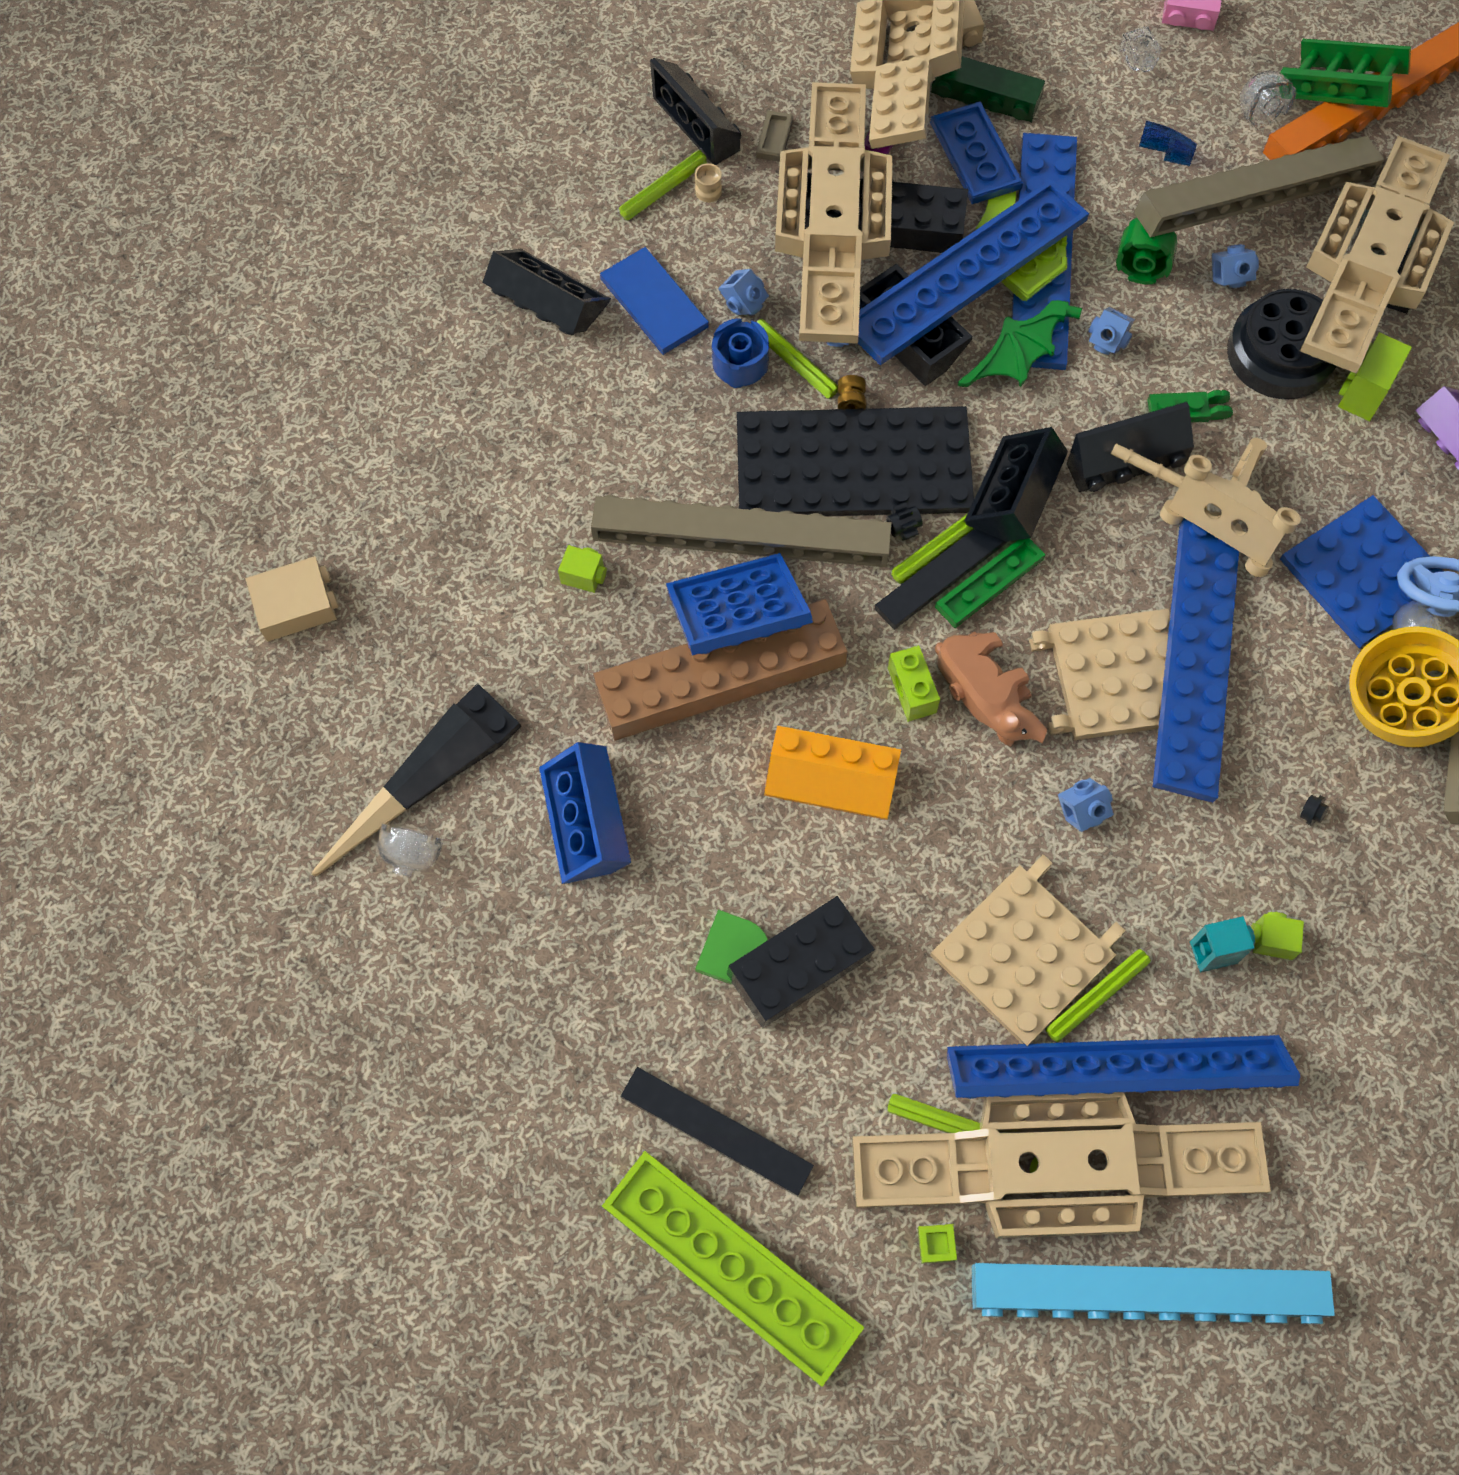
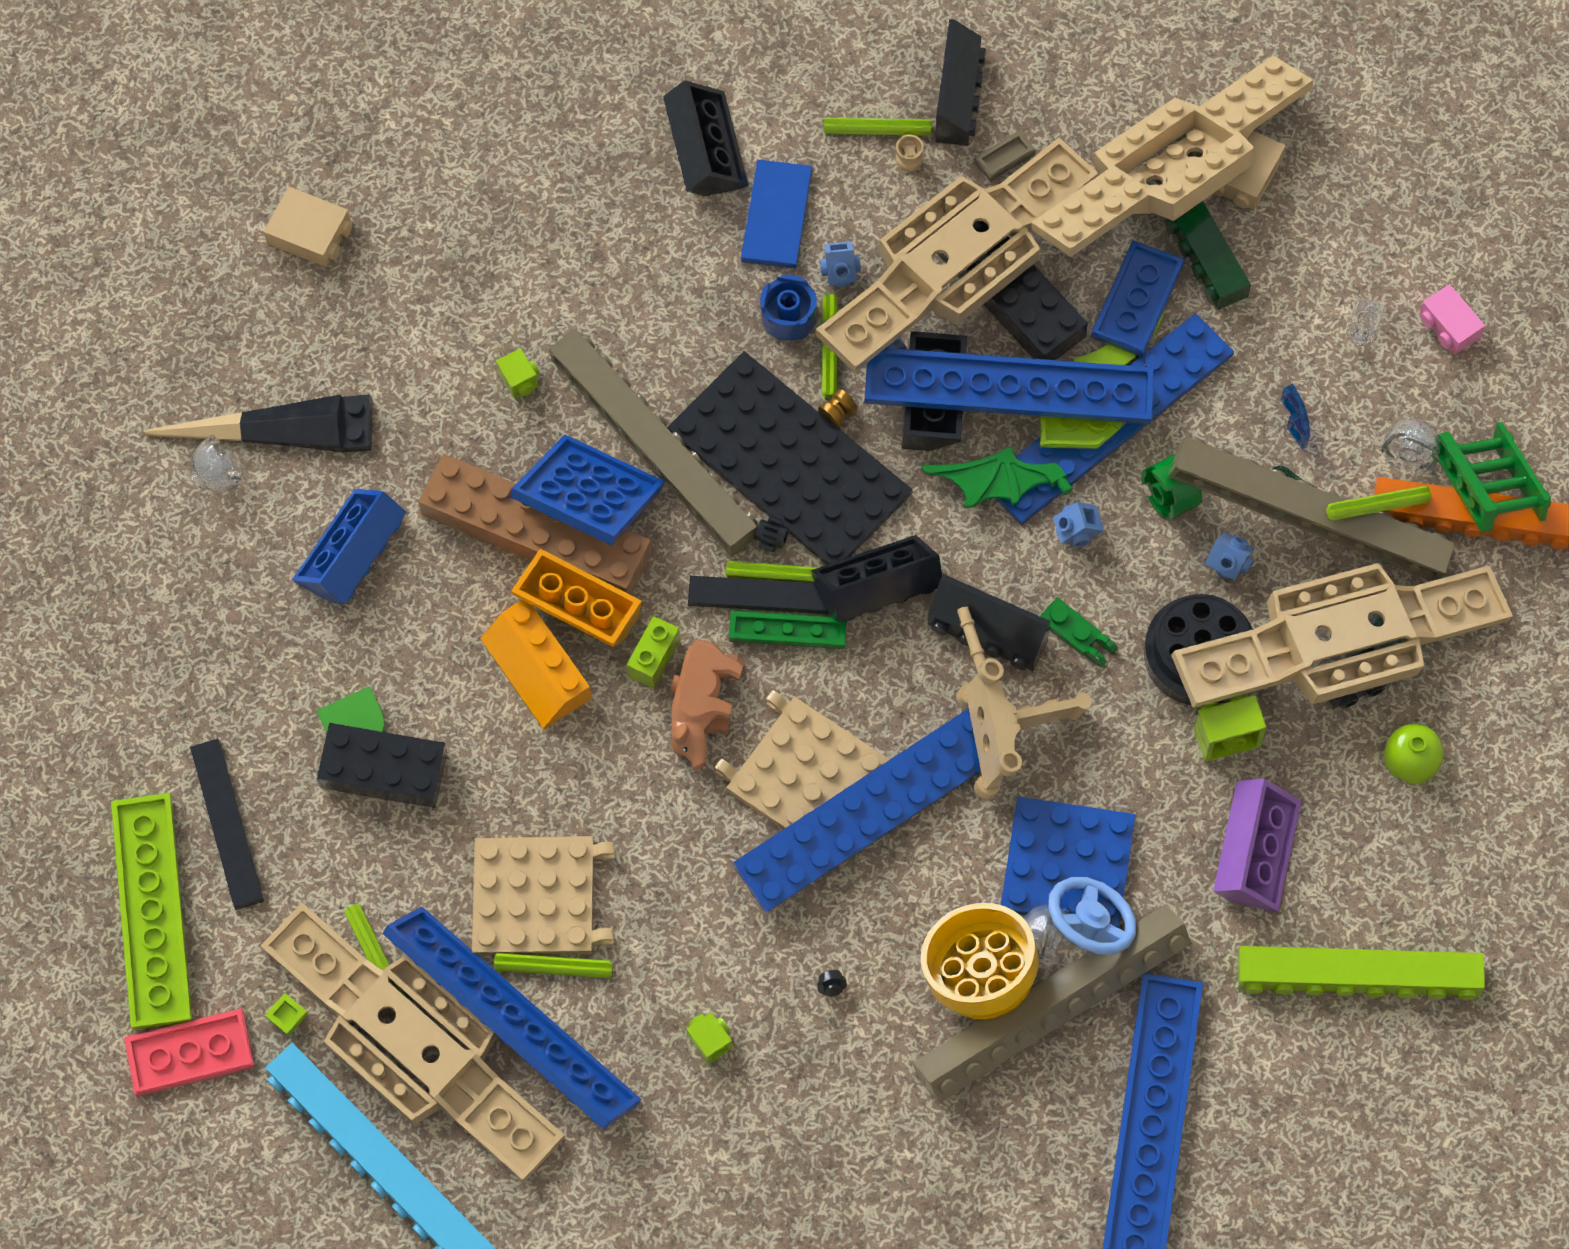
camera: 45 degrees right, 0 degrees up
(817, 690) = (578, 598): none -> light orange slope
(888, 1358) = (189, 1052): none -> coral tile
(1086, 804) = (678, 836): medium blue brick -> none
(1222, 944) = (660, 1004): teal brick -> none
(1302, 142) = (1378, 503): none -> lime axle

